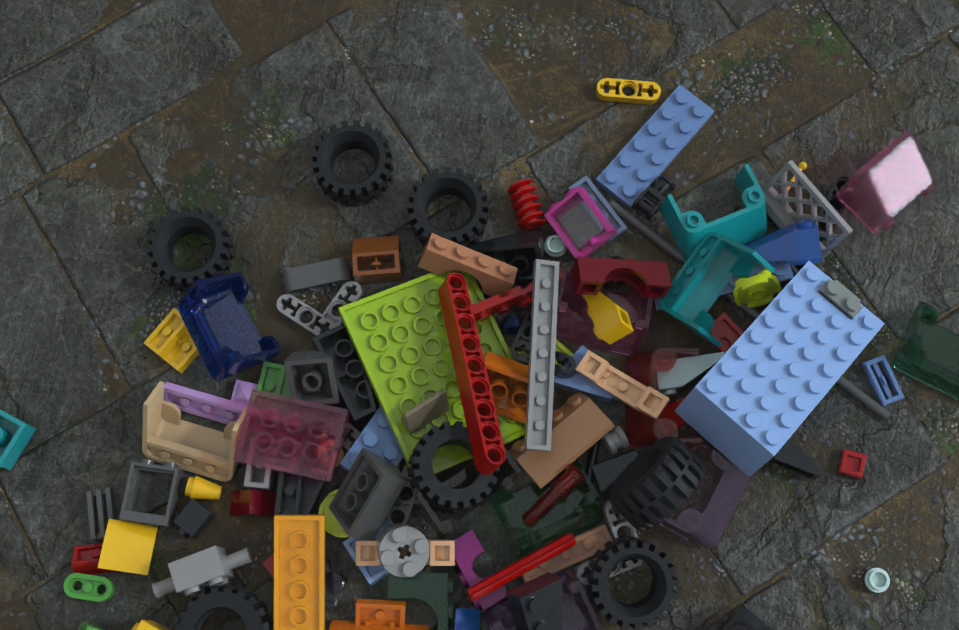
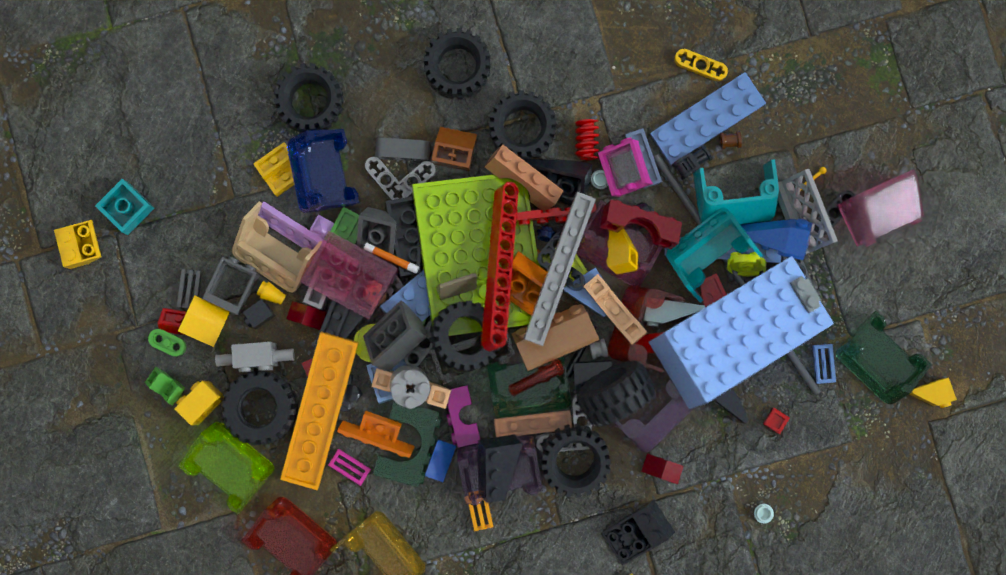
camera: 20 degrees right, 10 degrees up
(338, 401) = (391, 258): none -> orange bar
(521, 567) = (495, 424): red axle -> none
(689, 161) = (730, 140): none -> reddish brown bush
(737, 562) = (662, 468): none -> dark red slope

